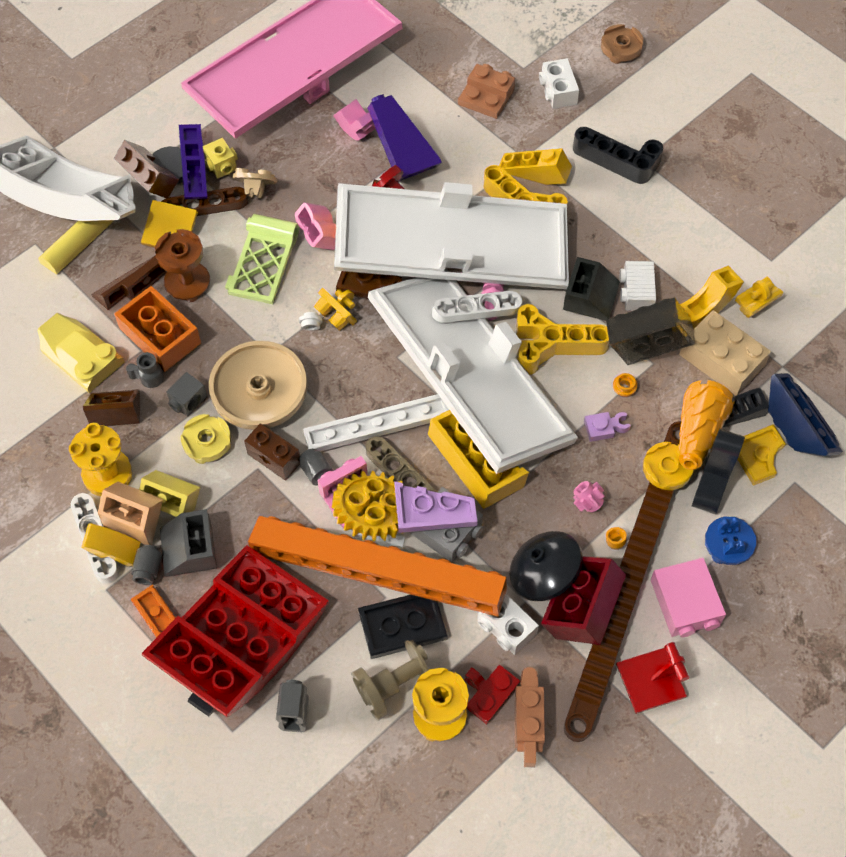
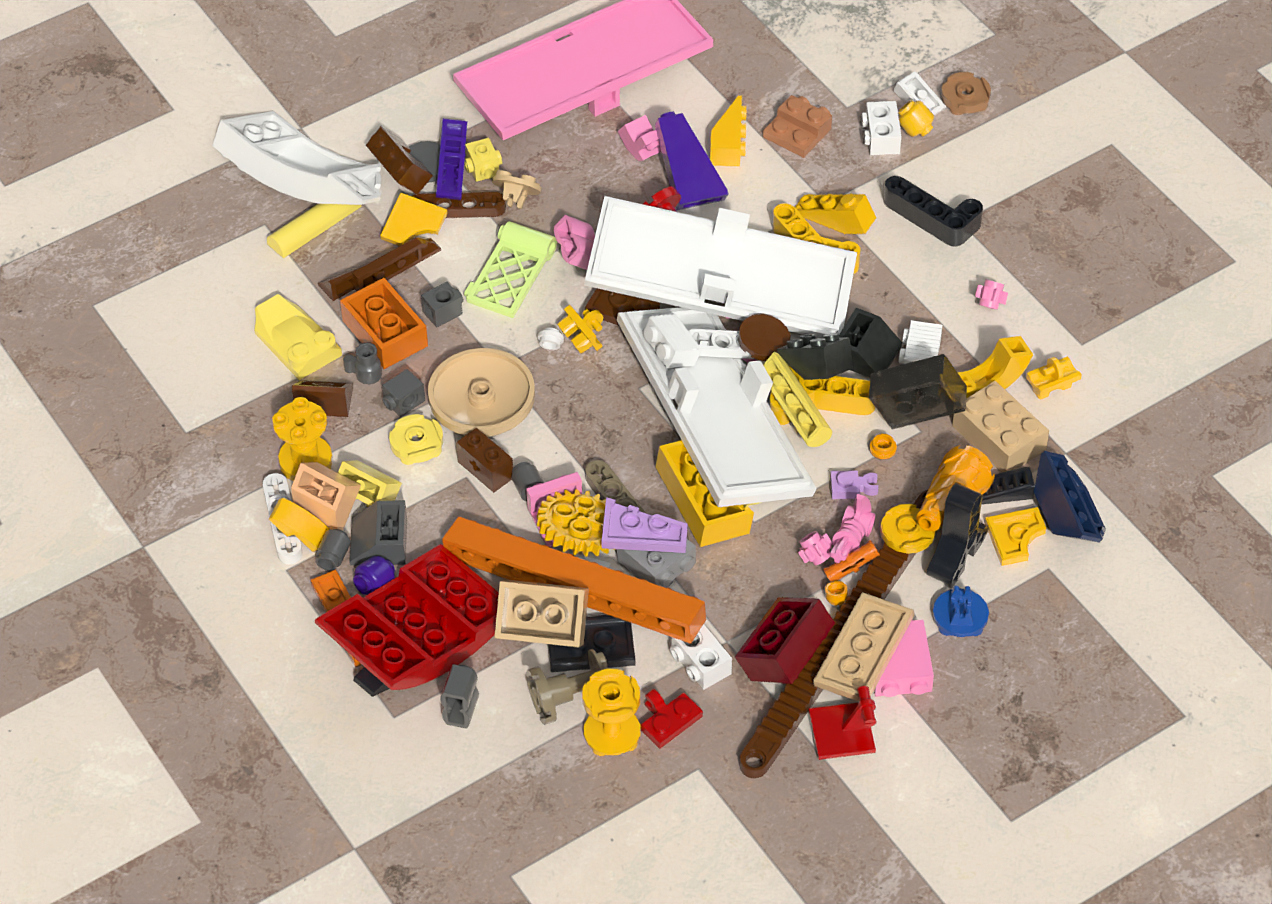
camera: 10 degrees right, 10 degrees down
(181, 258) = (420, 249): dark orange piece -> none
(189, 586) = (373, 574): none -> dark purple head
(207, 309) = (442, 304): none -> dark grey brick
(355, 609) = (541, 613): none -> tan brick
(374, 423) = (597, 447): white plate -> none
(423, 314) = (671, 341): none -> white brick
(428, 109) = (727, 135): none -> yellow slope
(503, 297) = (762, 336): none -> reddish brown tile
(529, 717) = (704, 741): nougat hinge -> none
(545, 357) = (797, 402): none -> light yellow brick
(546, 566) = (752, 605): black dish -> none
(555, 310) = (818, 356): none -> pearl dark grey slope
(582, 50) = (916, 89): none -> white slope
(586, 71) = (915, 118): none -> yellow head
(618, 472) = (856, 524): none -> bright pink piece
(624, 506) = (852, 563): none -> orange pin
(657, 596) = (864, 646): none -> tan tile
(687, 226) = (991, 294): none -> bright pink gear

